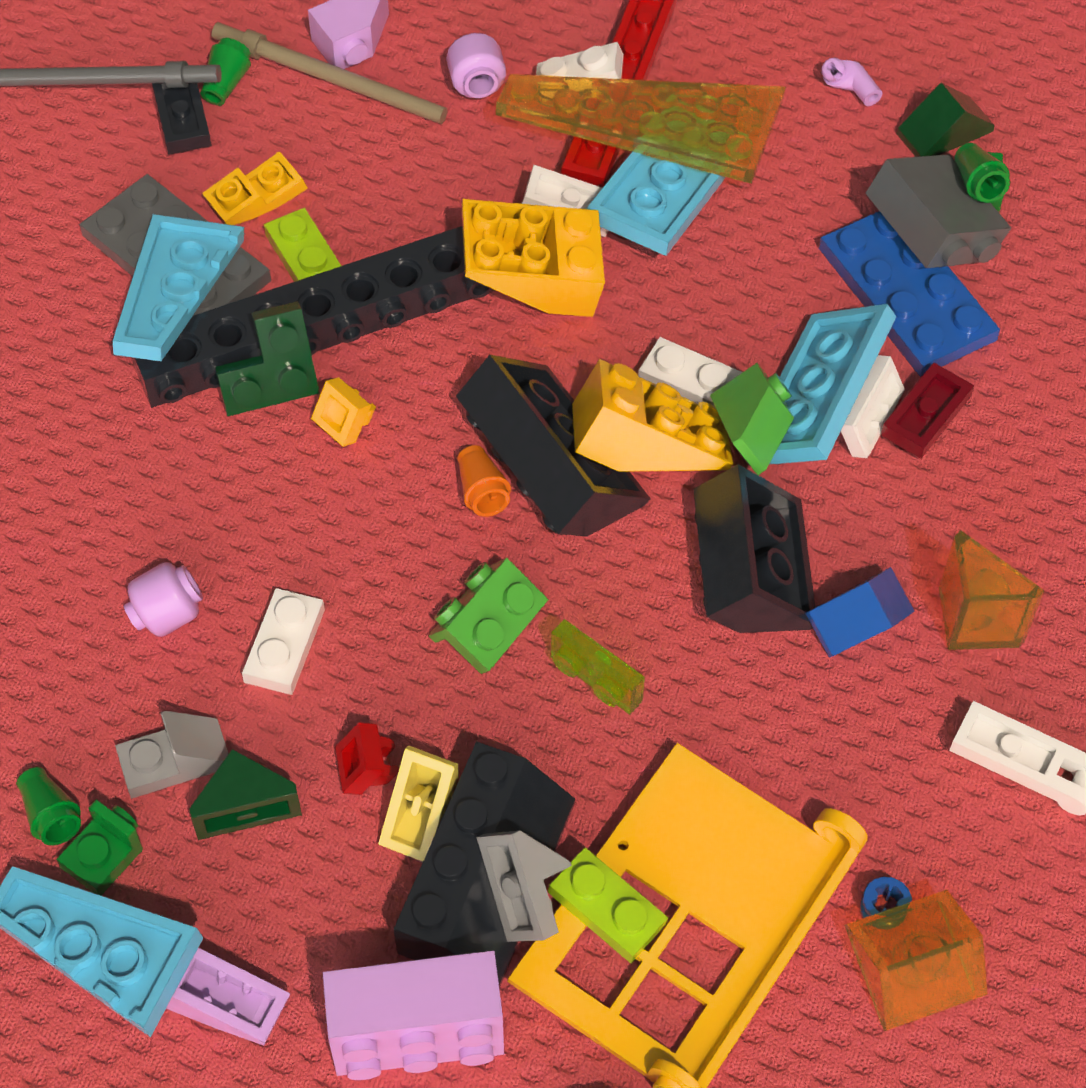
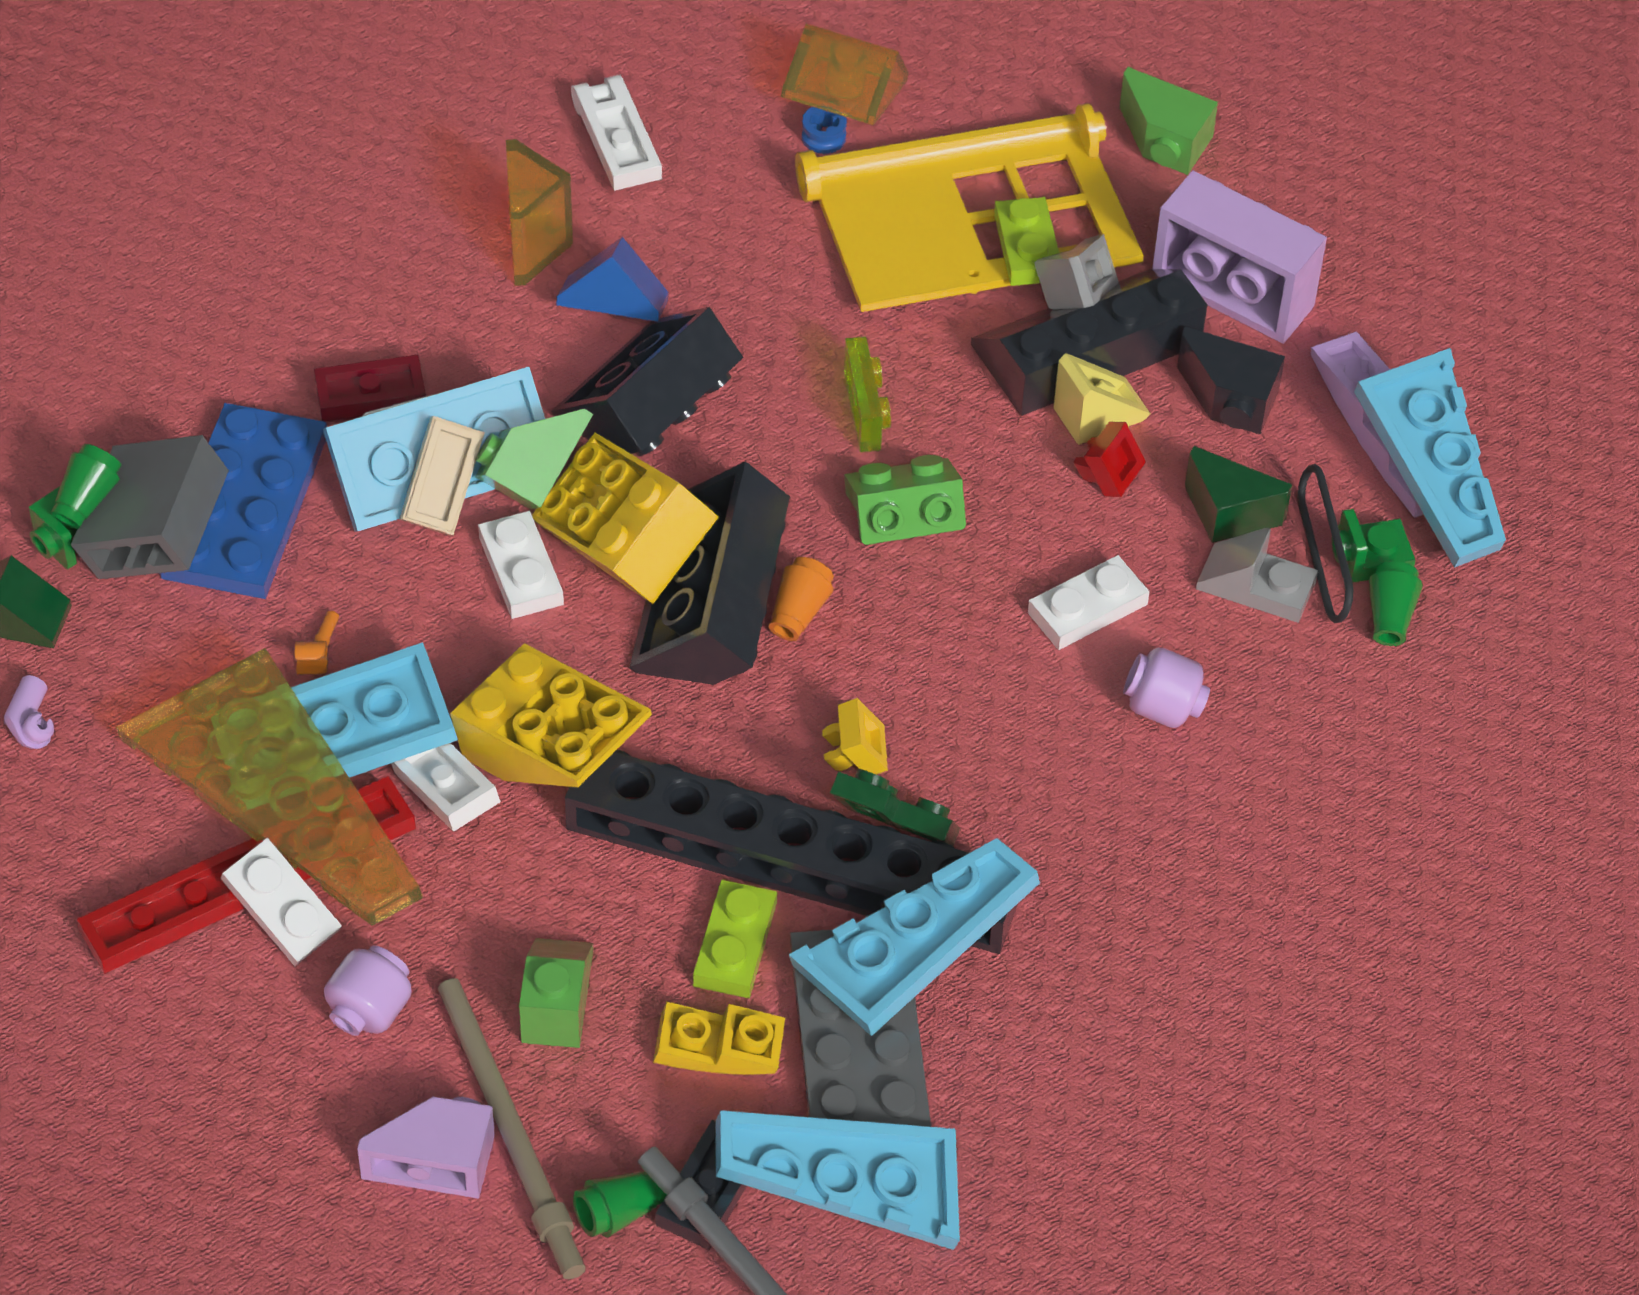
camera: 140 degrees left, 5 degrees down
(89, 173) = (857, 1169): none -> medium azure wing
(139, 815) = (1337, 542): none -> black piece
(332, 908) = (1230, 378): none -> black slope
(376, 143) = (555, 992): none -> bright green slope
(740, 227) = (313, 655): none -> orange hand
(797, 364) = (441, 476): none -> tan tile

